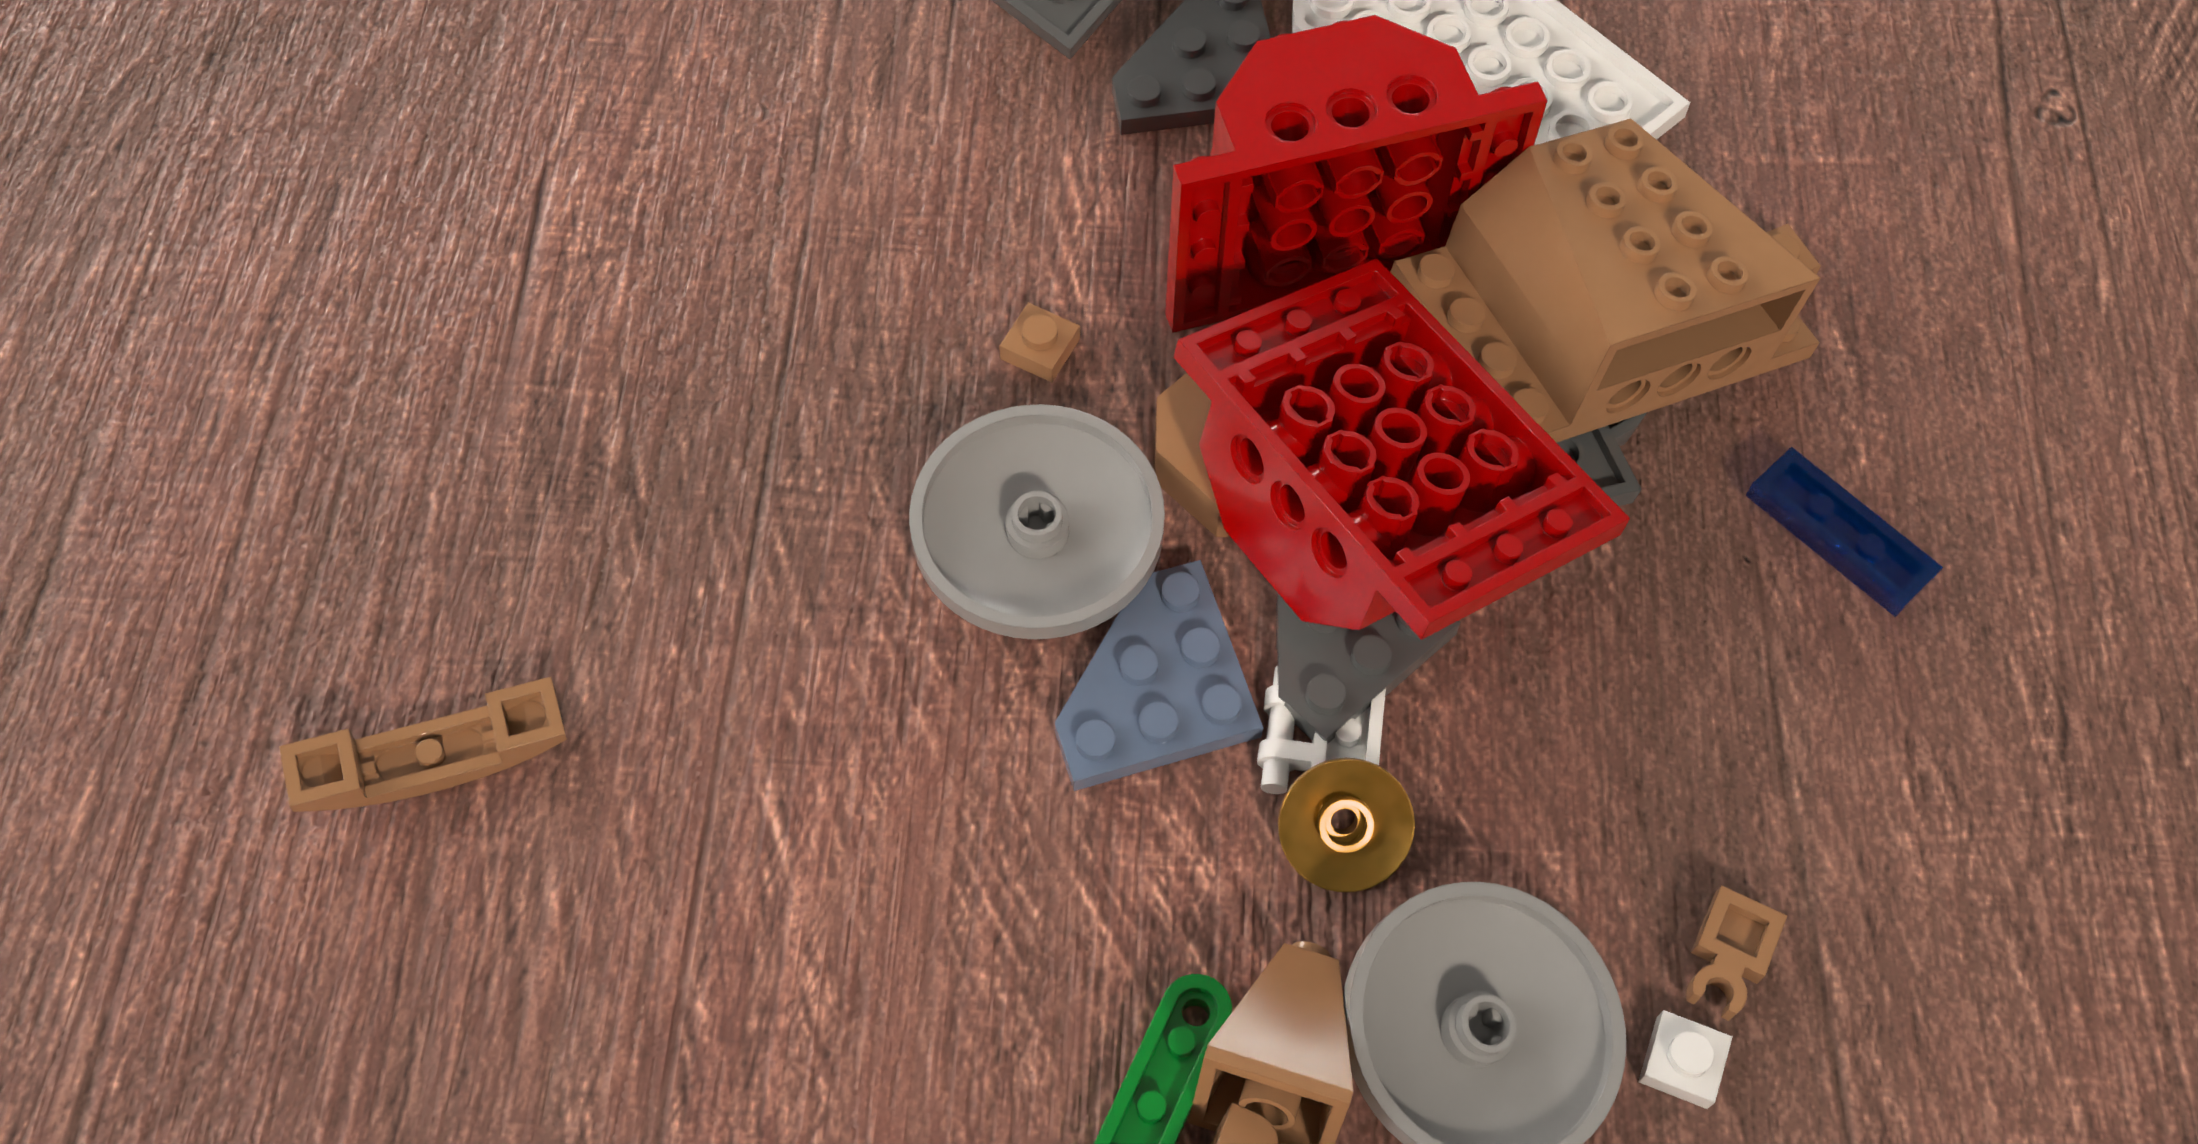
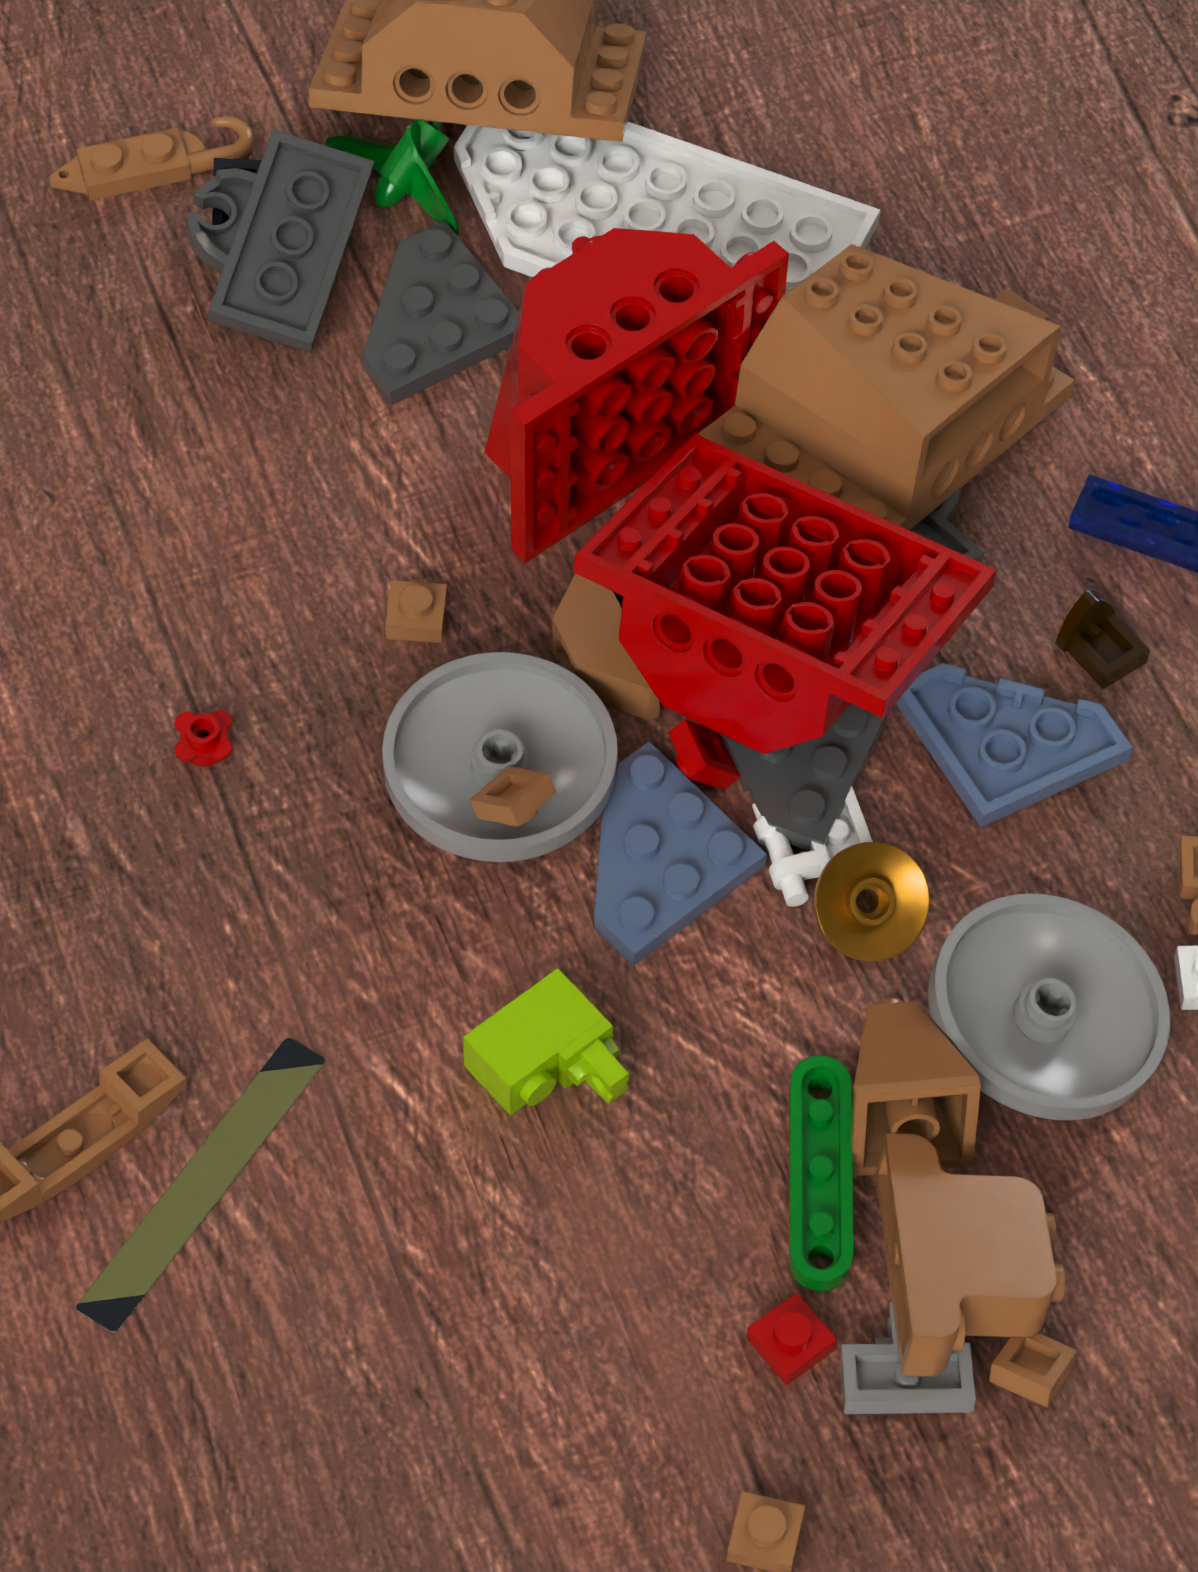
camera: 25 degrees left, 5 degrees down
(532, 849) = (199, 1185): none -> olive sticker
(773, 406) = (205, 750): none -> red plate
(929, 838) = (545, 1039): none -> lime hinge
(1021, 568) = (513, 796): none -> medium nougat plate
(1245, 597) = (703, 755): none -> red plate
(1578, 702) = (1008, 740): none -> sand blue plate
(1728, 630) = (1100, 640): none -> dark brown tile

